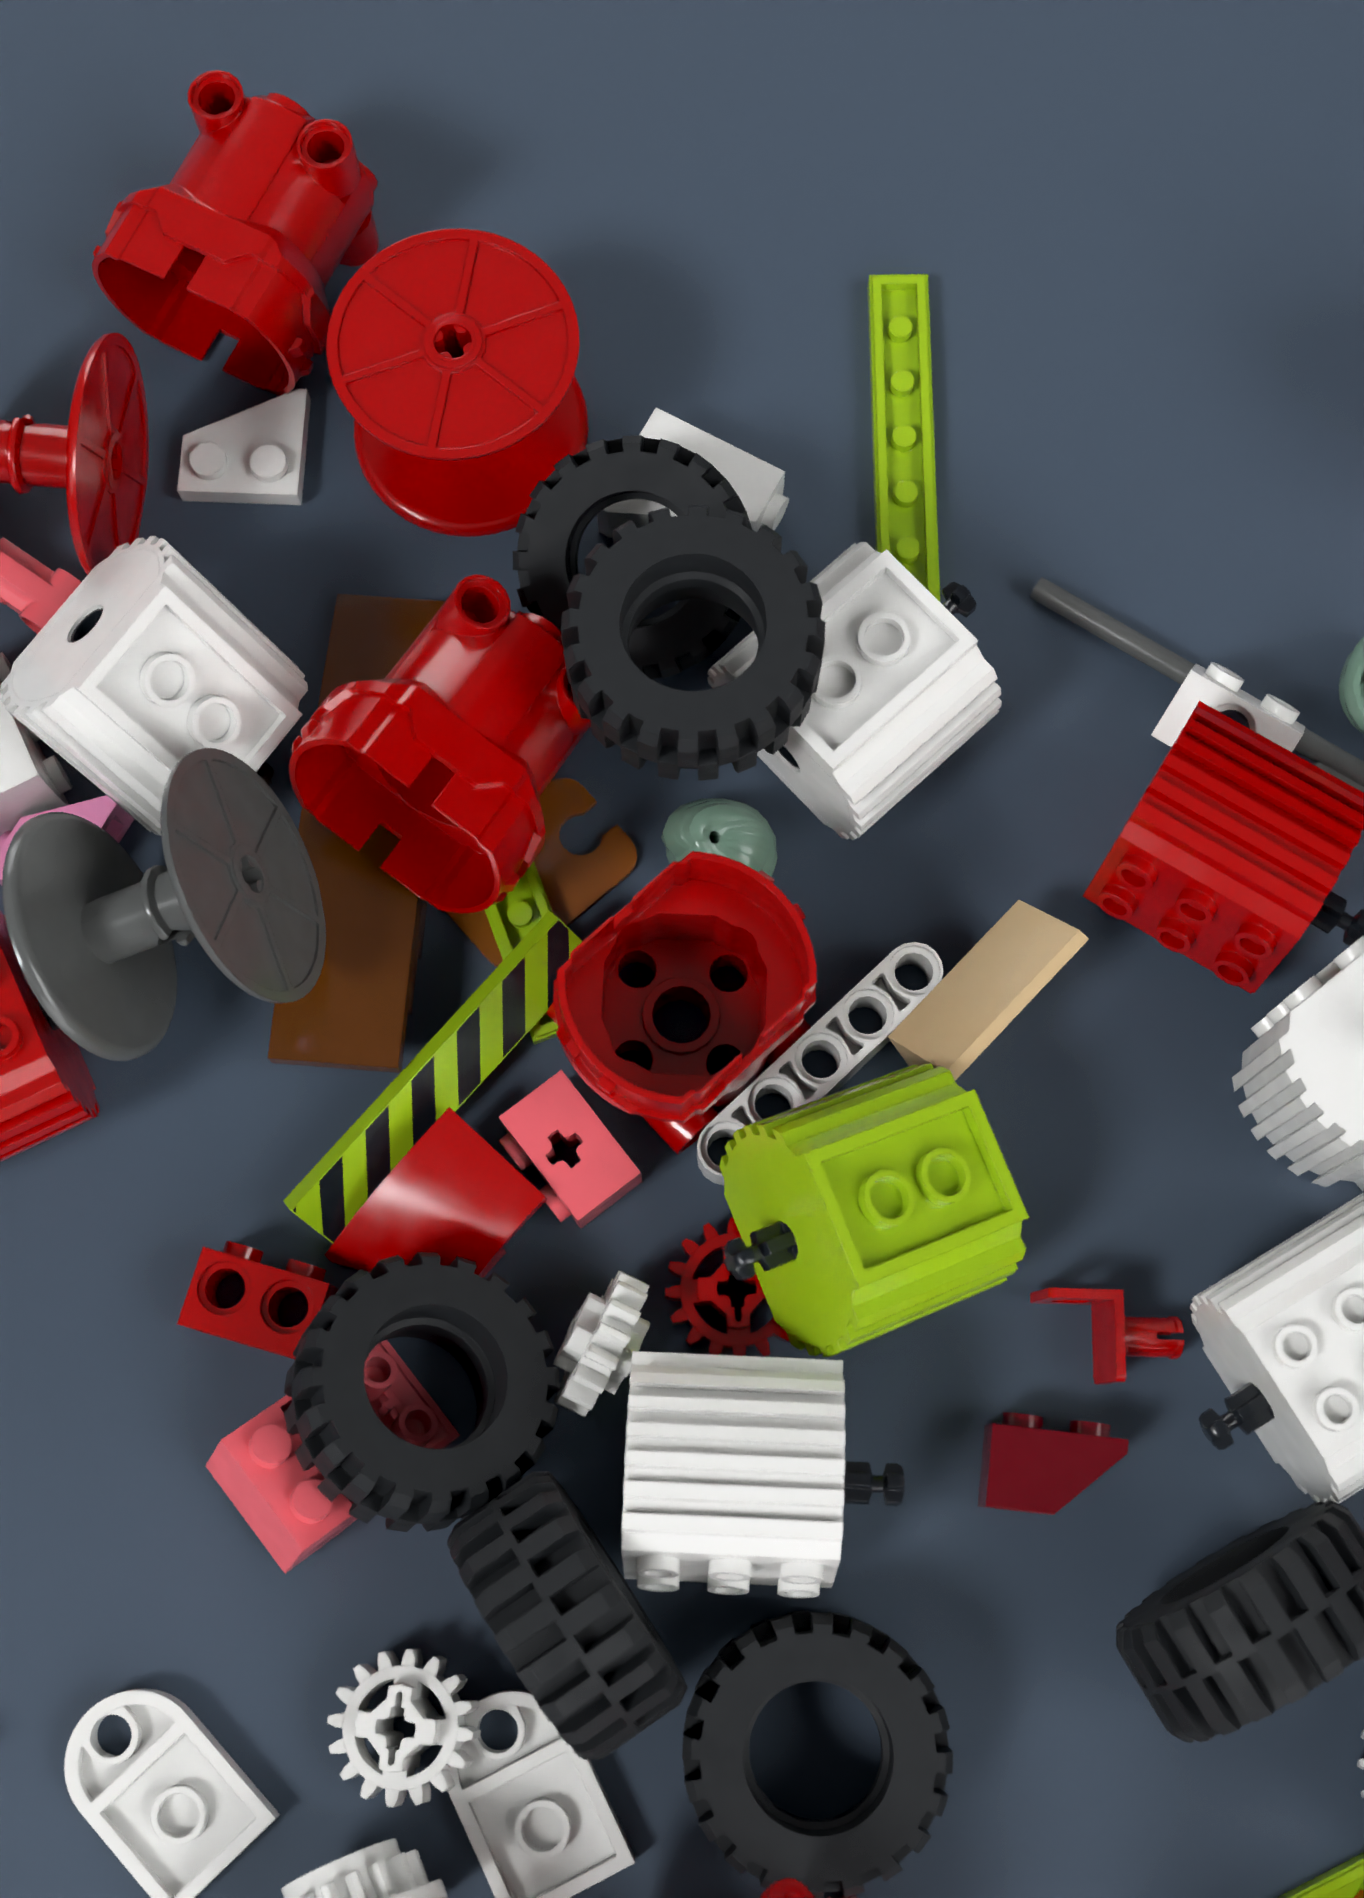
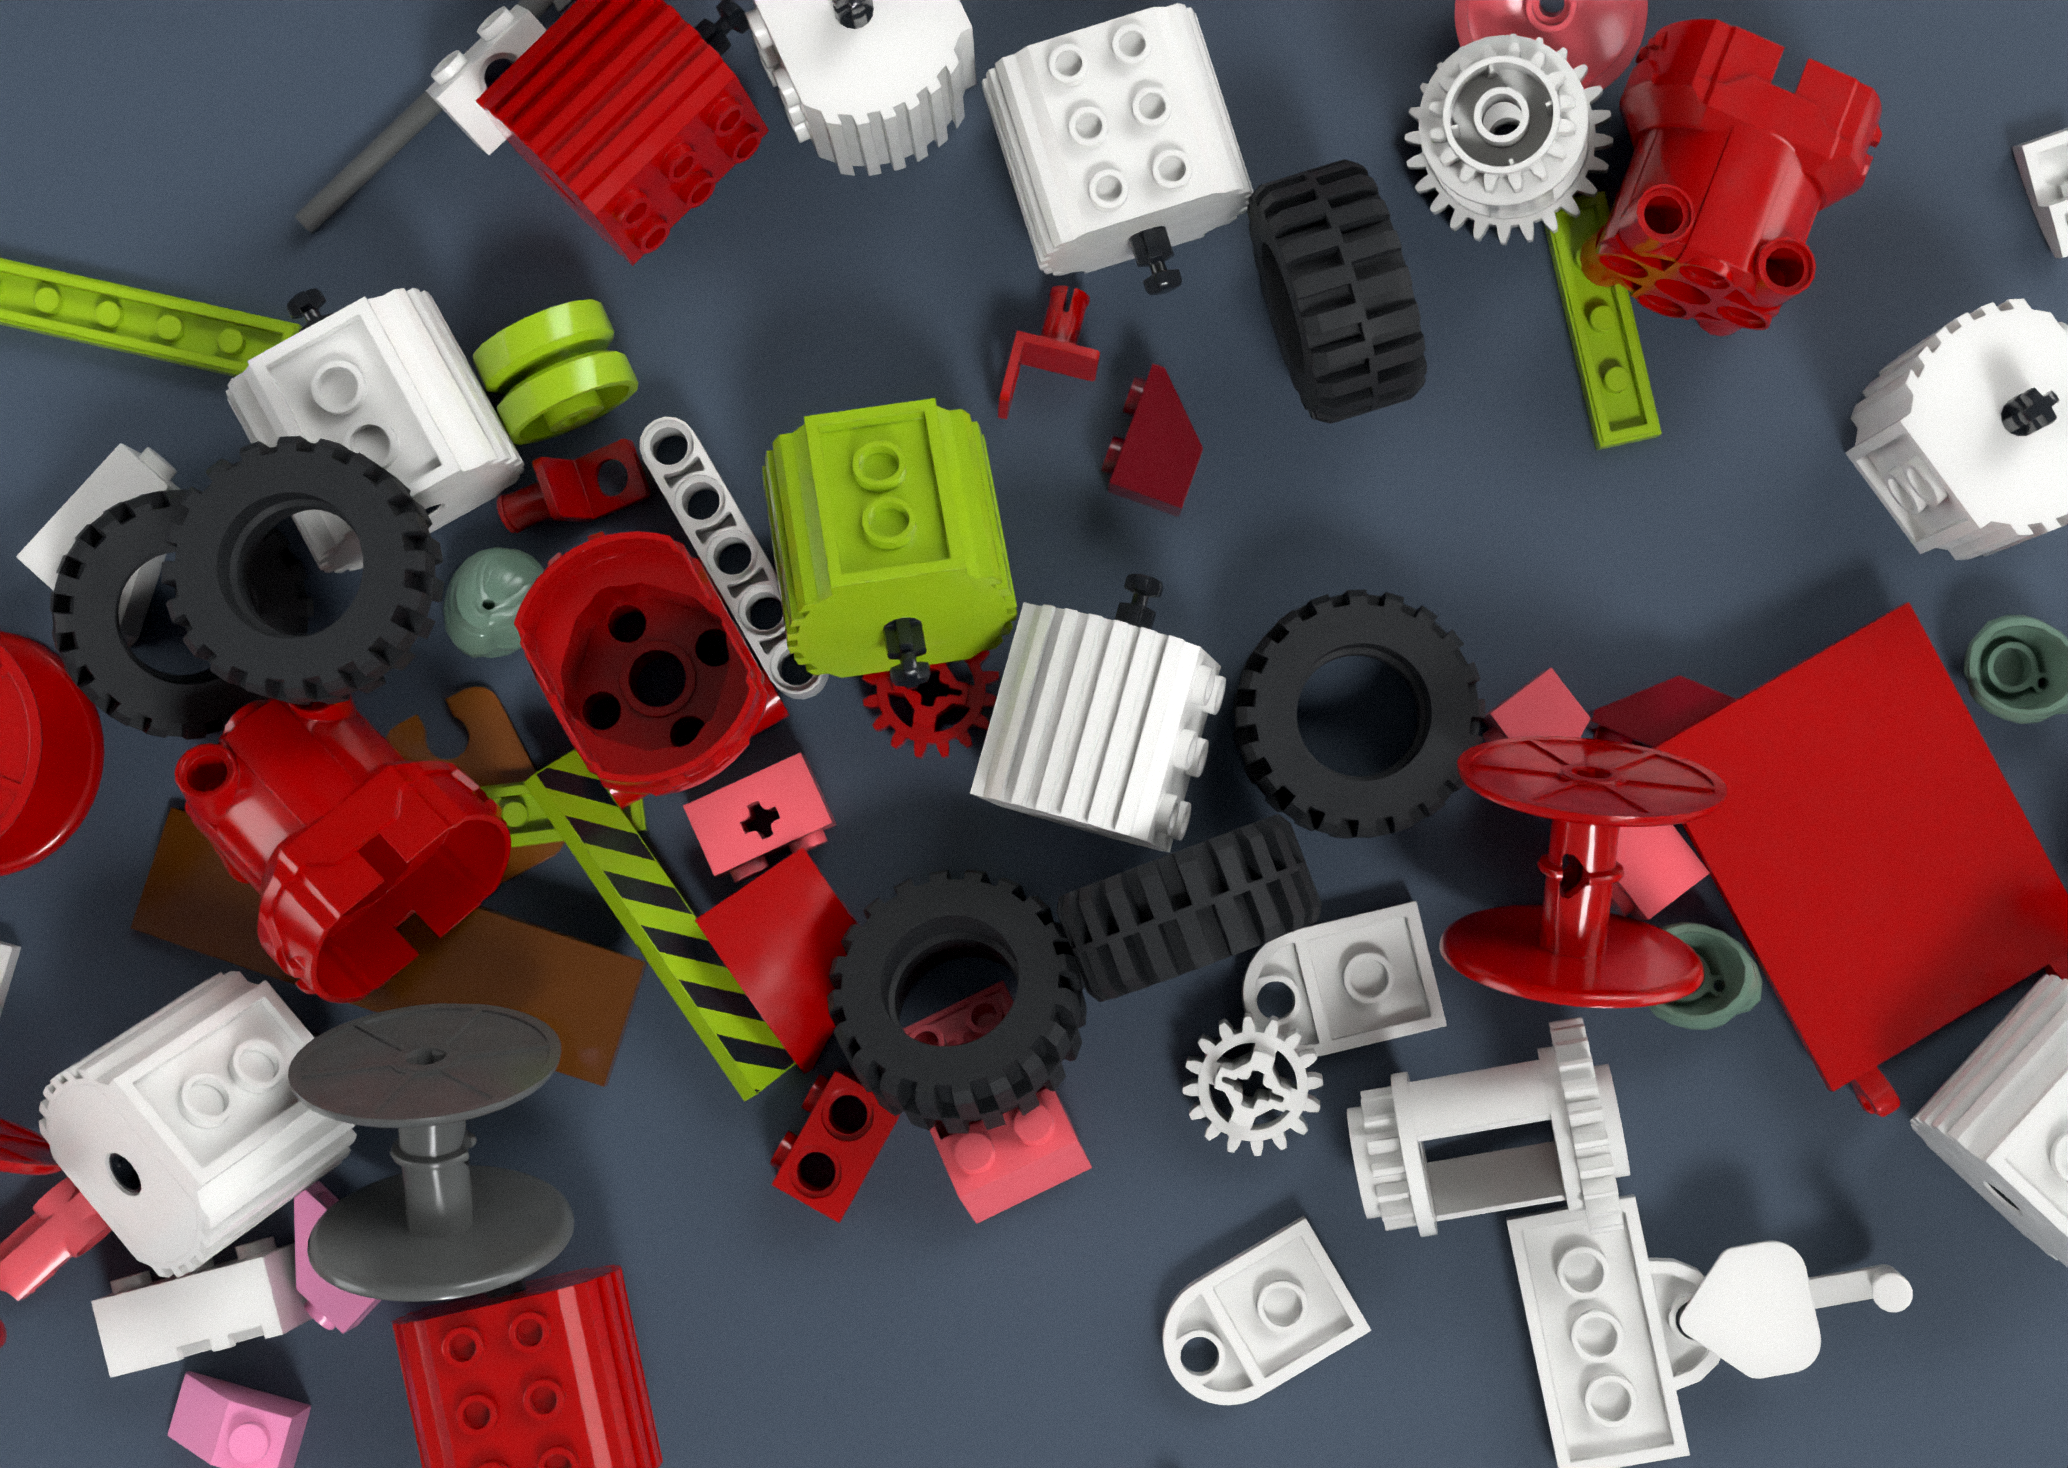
camera: 75 degrees left, 10 degrees up
(601, 1343) = (951, 824): white gear -> none
(849, 890) = (571, 489): none -> red bracket
(958, 845) = (555, 371): none -> lime wheel
(987, 989) = (705, 380): tan slope -> none

